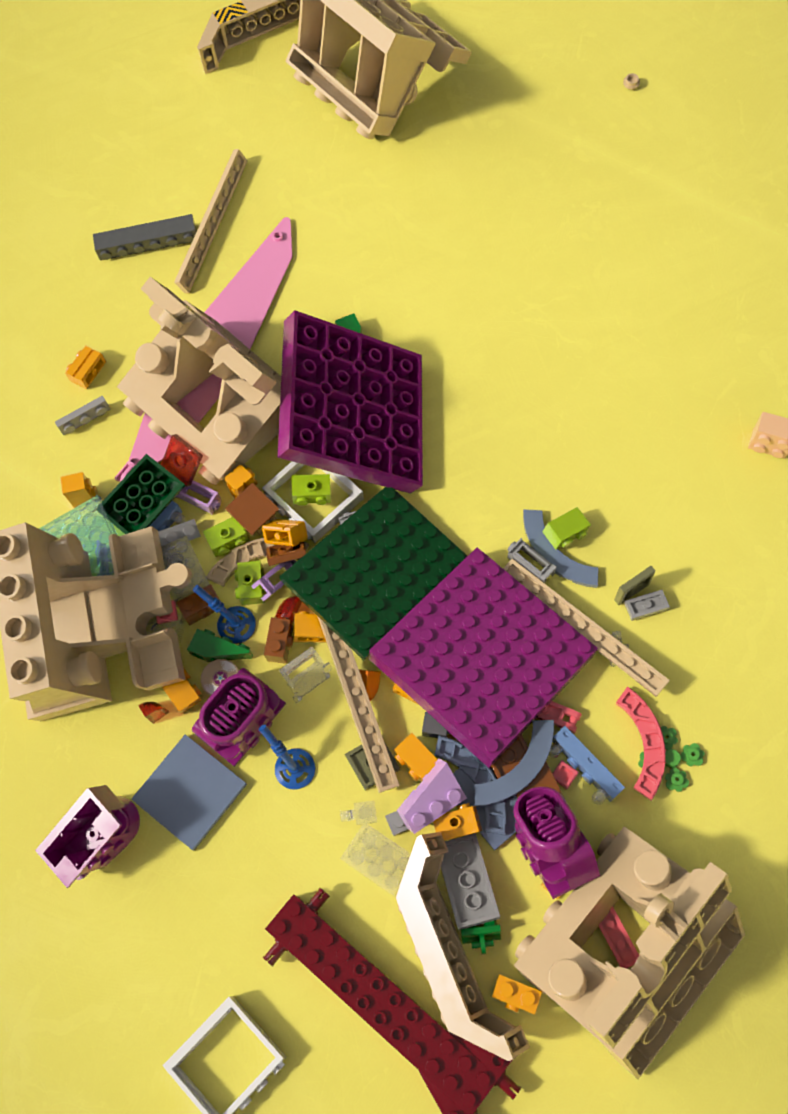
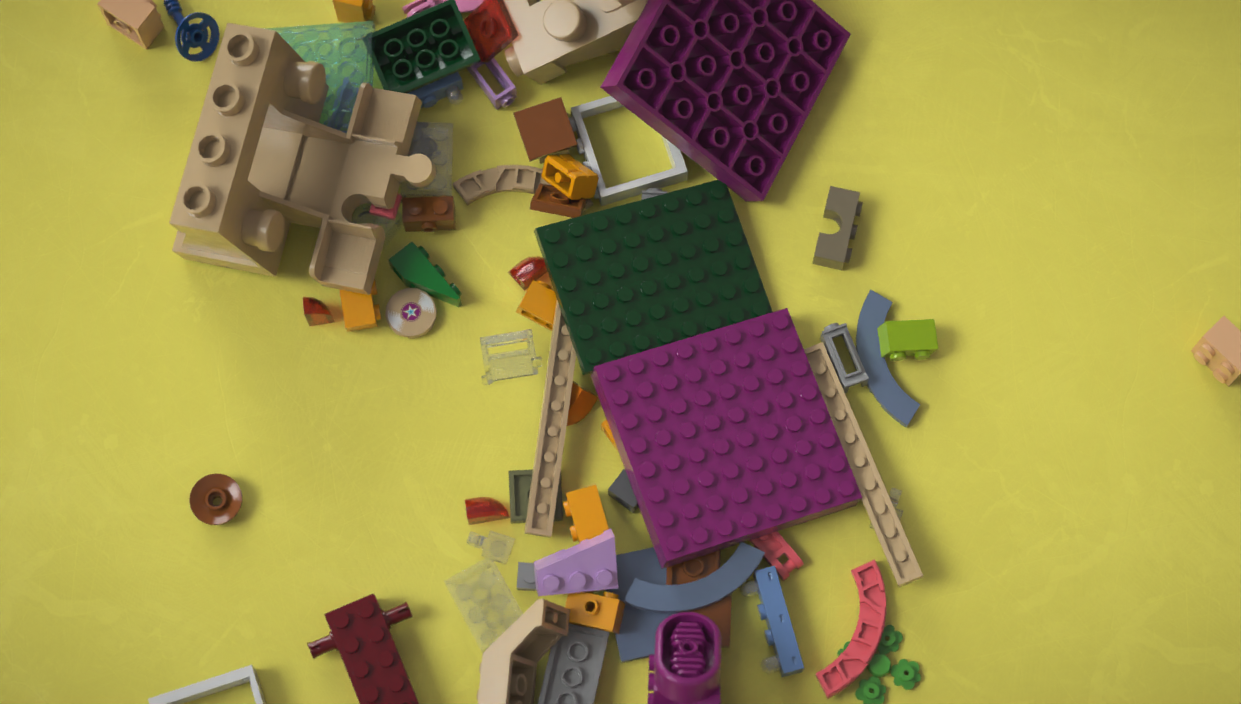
camera: 20 degrees right, 5 degrees up
(90, 834) = (183, 415): brick -> none
(134, 879) = (207, 490): none -> dark orange dish
(178, 531) = (442, 112): light grey plate -> none
(189, 792) = (313, 424): sand blue tile -> none
(225, 536) = (498, 146): lime brick -> none
(231, 616) = (457, 248): blue dish -> none
(235, 713) = (409, 365): magenta brick -> none
(240, 480) = (549, 86): light orange brick -> none
(247, 575) = (500, 216): lime brick -> none
(267, 585) = (516, 226): lavender window -> none
(279, 640) = (499, 302): dark orange brick -> none
(290, 763) = (442, 451): blue dish -> none
(311, 489) = (627, 139): lime brick -> none
(342, 790) = (485, 510): none -> clear red brick
(476, 466) = (833, 249): none -> dark tan arch
(479, 773) = (637, 539): sand blue tile -> none
(564, 774) = (746, 621): coral tile -> none
(634, 585) = (948, 447): olive tile -> none
(646, 605) = (952, 477): light grey plate -> none

